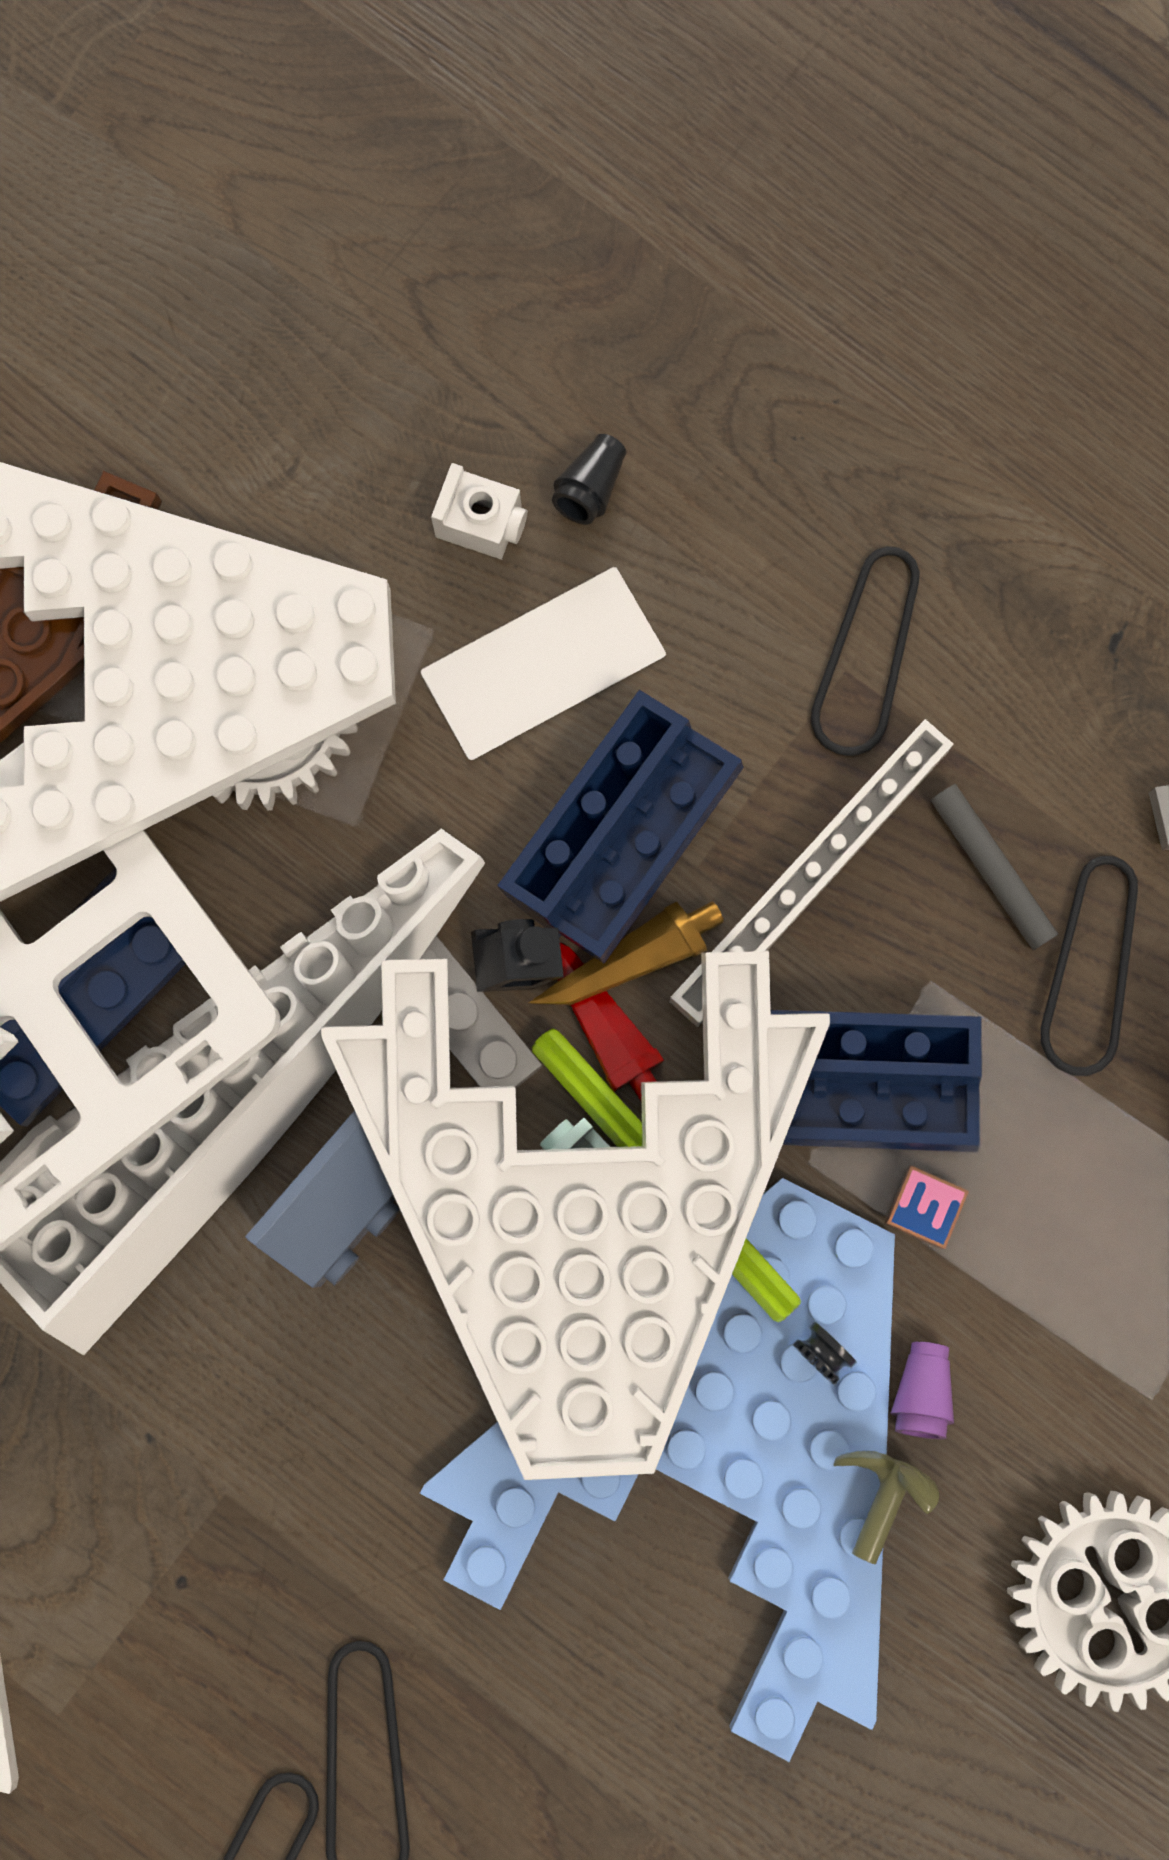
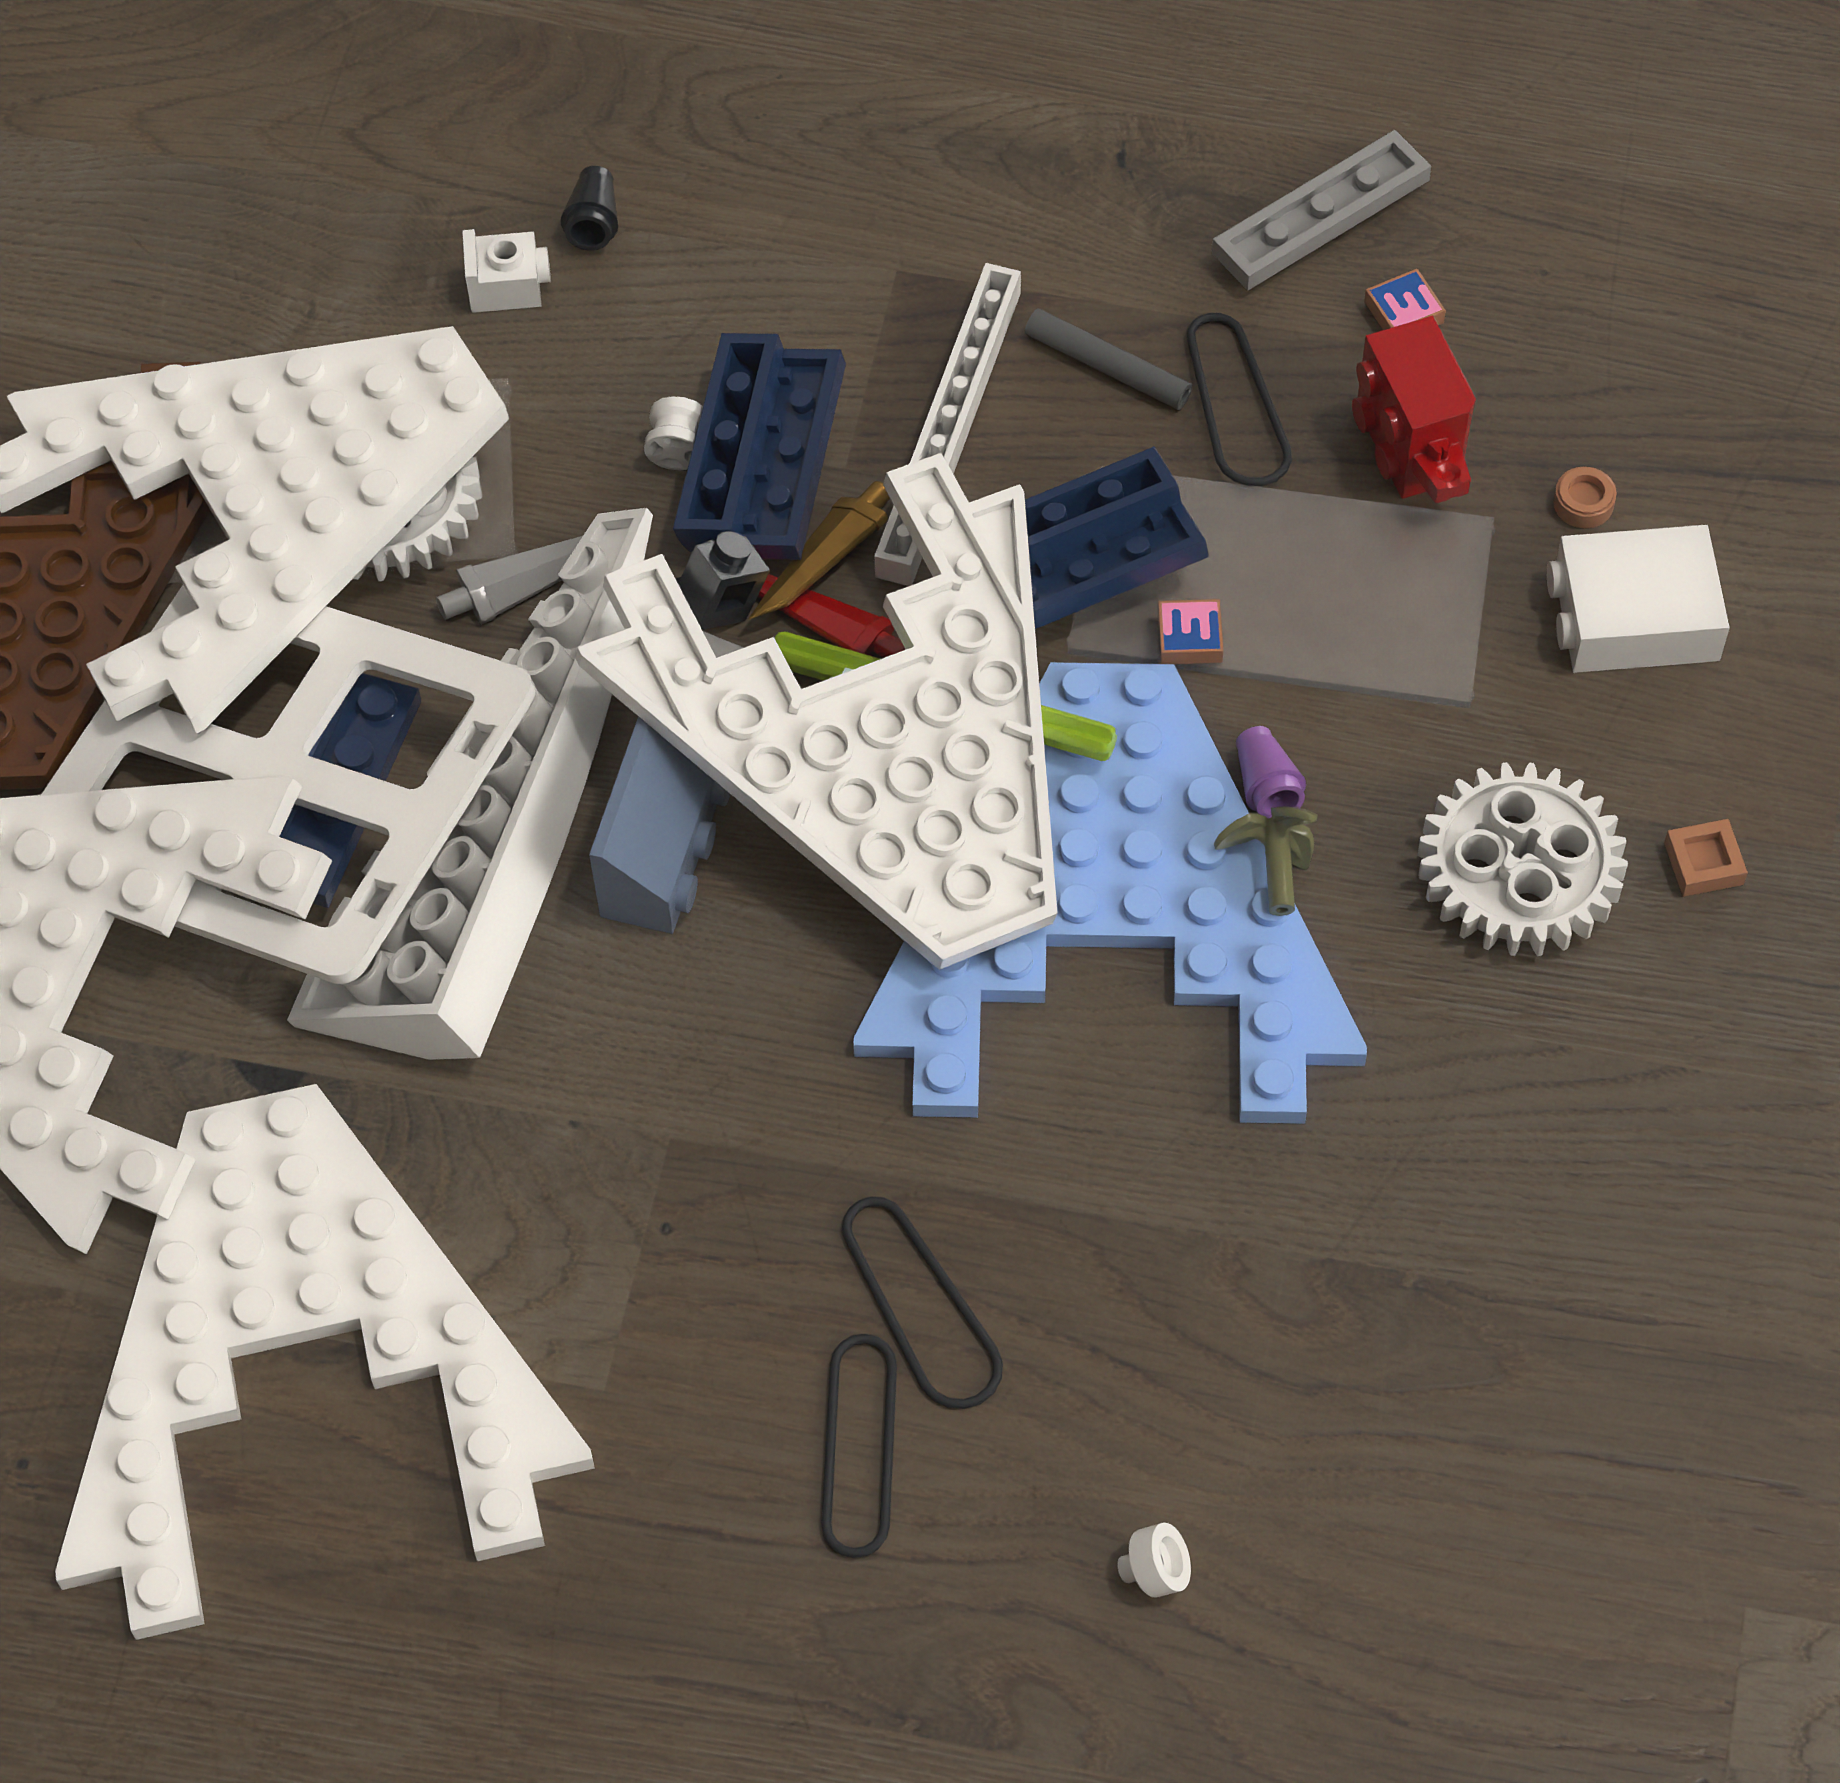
camera: 25 degrees left, 20 degrees down
(340, 851) = (505, 581): none -> light grey bar
(542, 663) = (620, 369): white sticker -> none
(552, 767) = (673, 432): none -> white wheel
(826, 1351) = (1159, 759): black bush -> none
(897, 658) = (880, 251): black piece -> none

